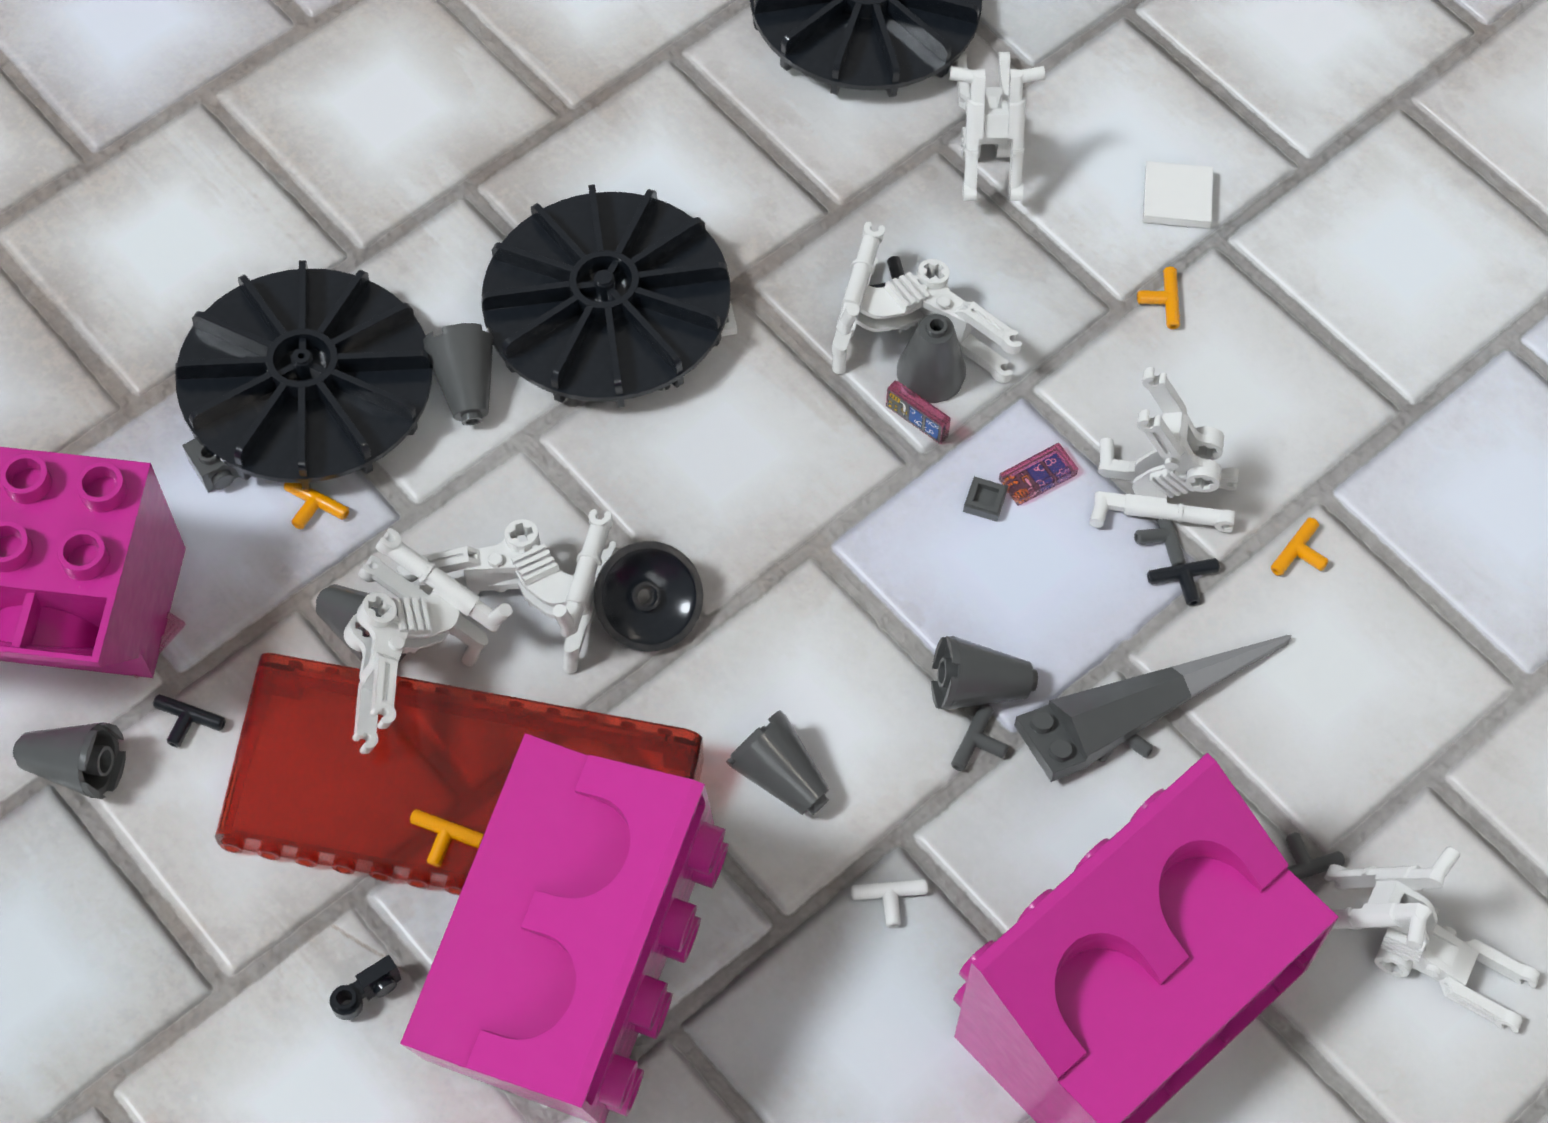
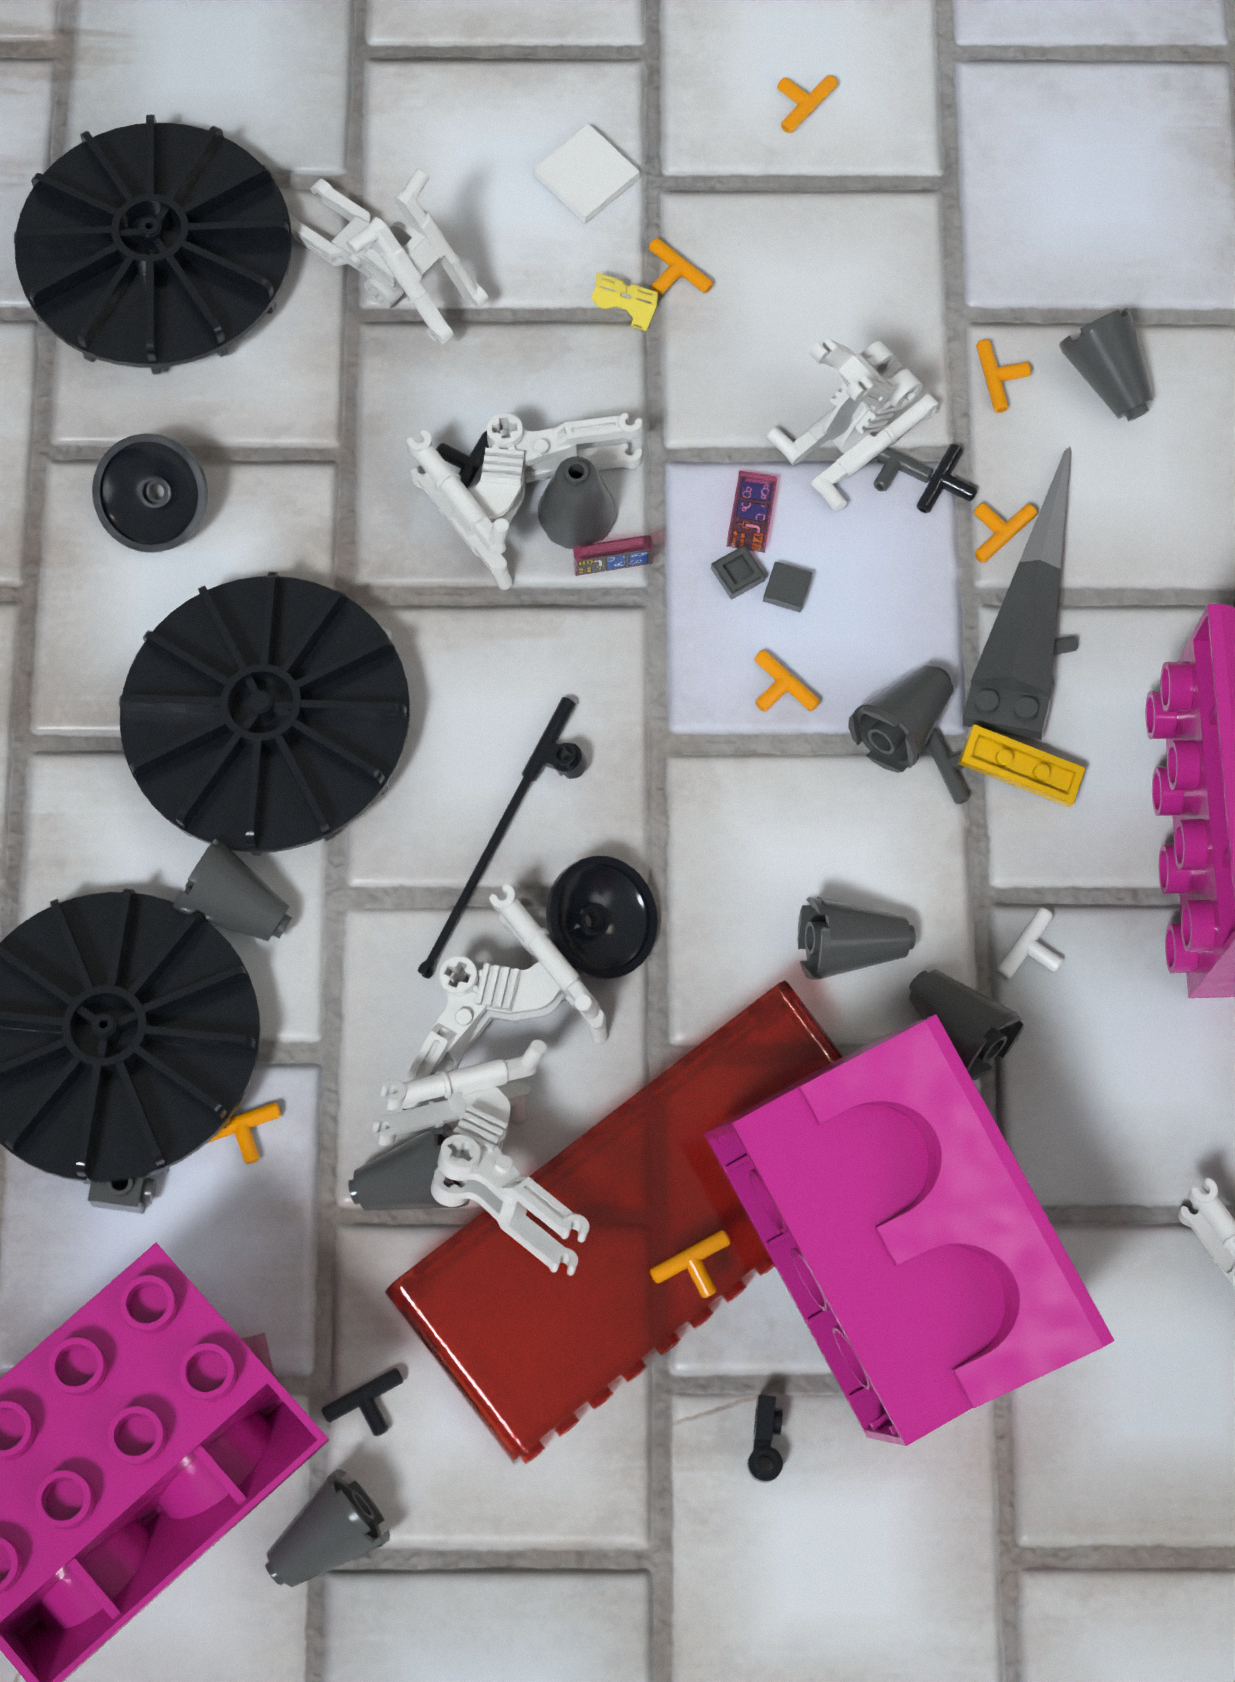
camera: 50 degrees left, 10 degrees up
(685, 111) = (127, 499): none -> black dish
(744, 493) = (566, 760): none -> black piece
(786, 890) = (972, 1020): none -> dark grey cone
(932, 587) = (784, 682): none -> light orange piece
(1005, 536) = (787, 587): none -> dark grey tile
(1017, 782) = (1021, 765): none -> yellow plate
(1114, 299) = (639, 310): none -> light yellow piece
(1186, 639) = (1002, 530): none -> light orange piece
(1372, 281) = (805, 102): none -> light orange piece
(1381, 608) = (1112, 363): none -> dark grey cone

